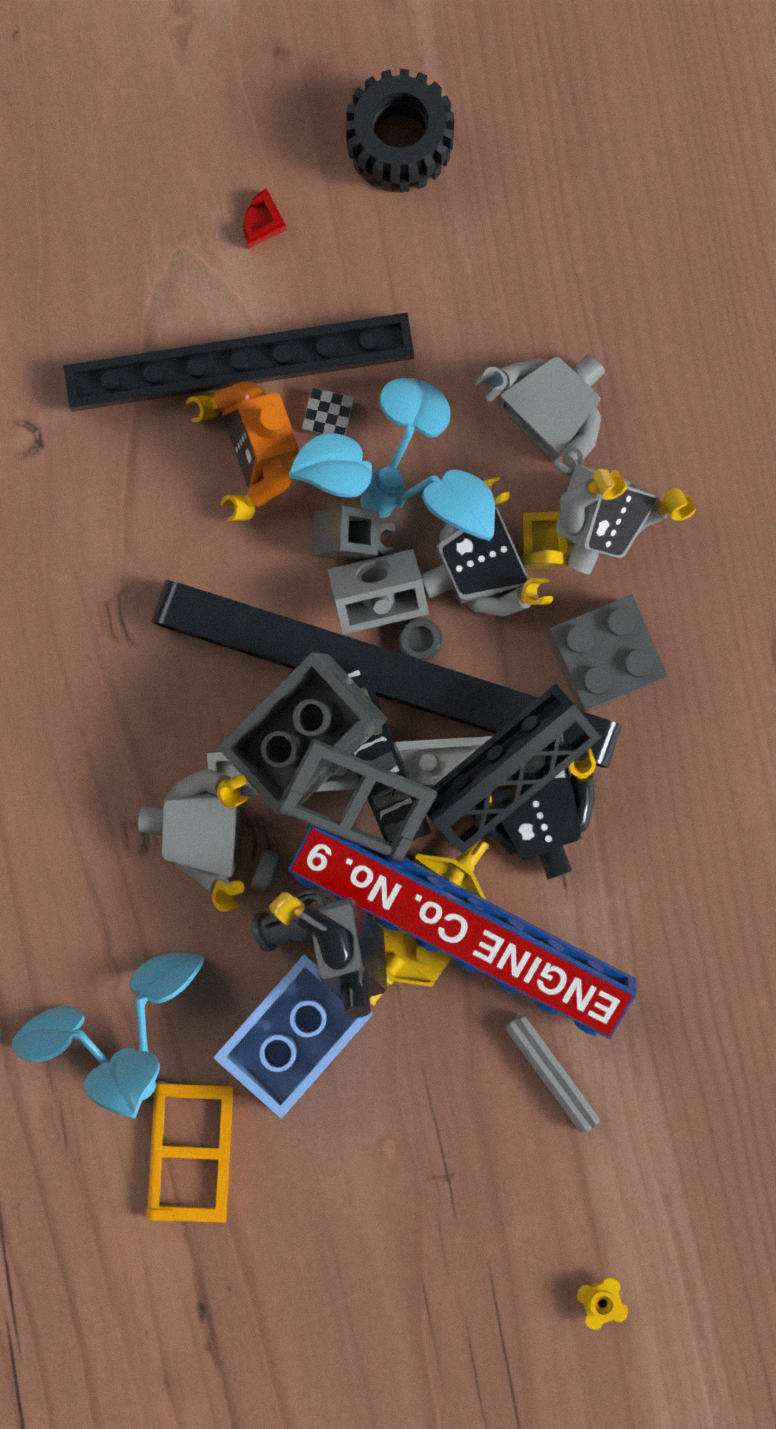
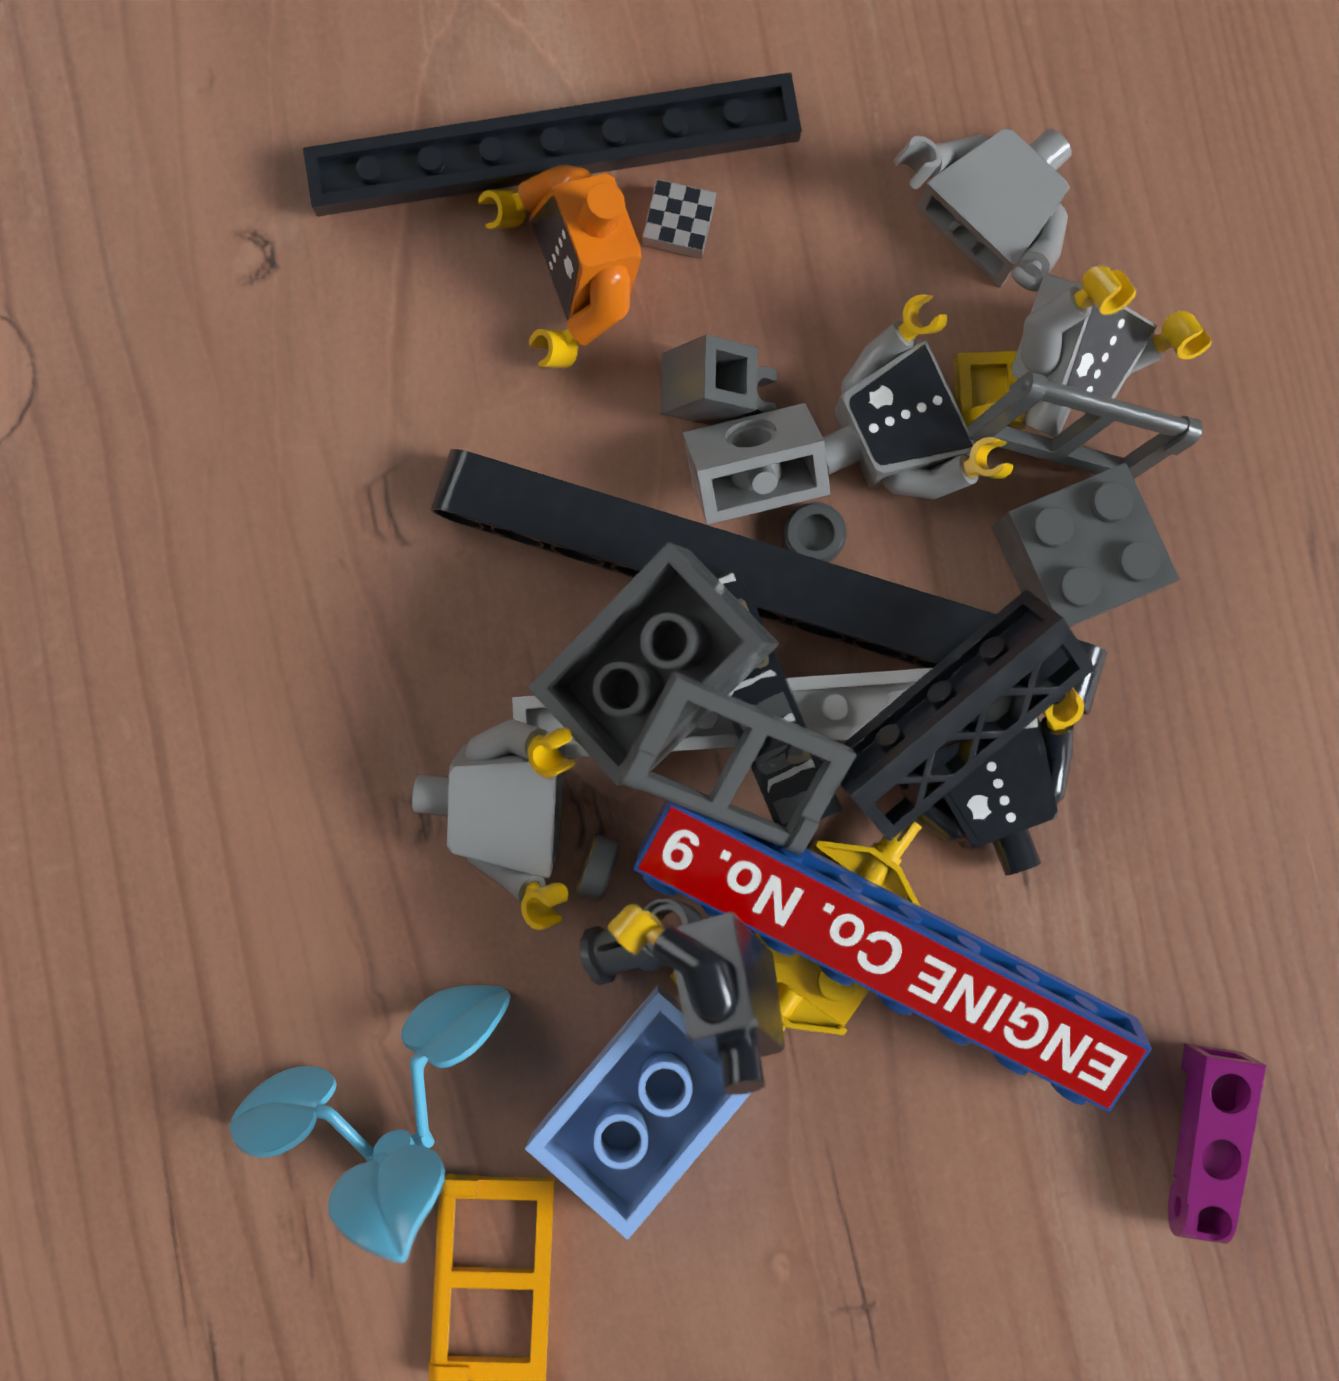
camera: 10 degrees left, 0 degrees up
(337, 466) = (703, 275): medium azure plant -> none
(552, 1074) = (1017, 1157): light grey axle -> none
(595, 581) = (1173, 438): none -> dark grey window
(686, 1064) = (1214, 1142): none -> magenta leg

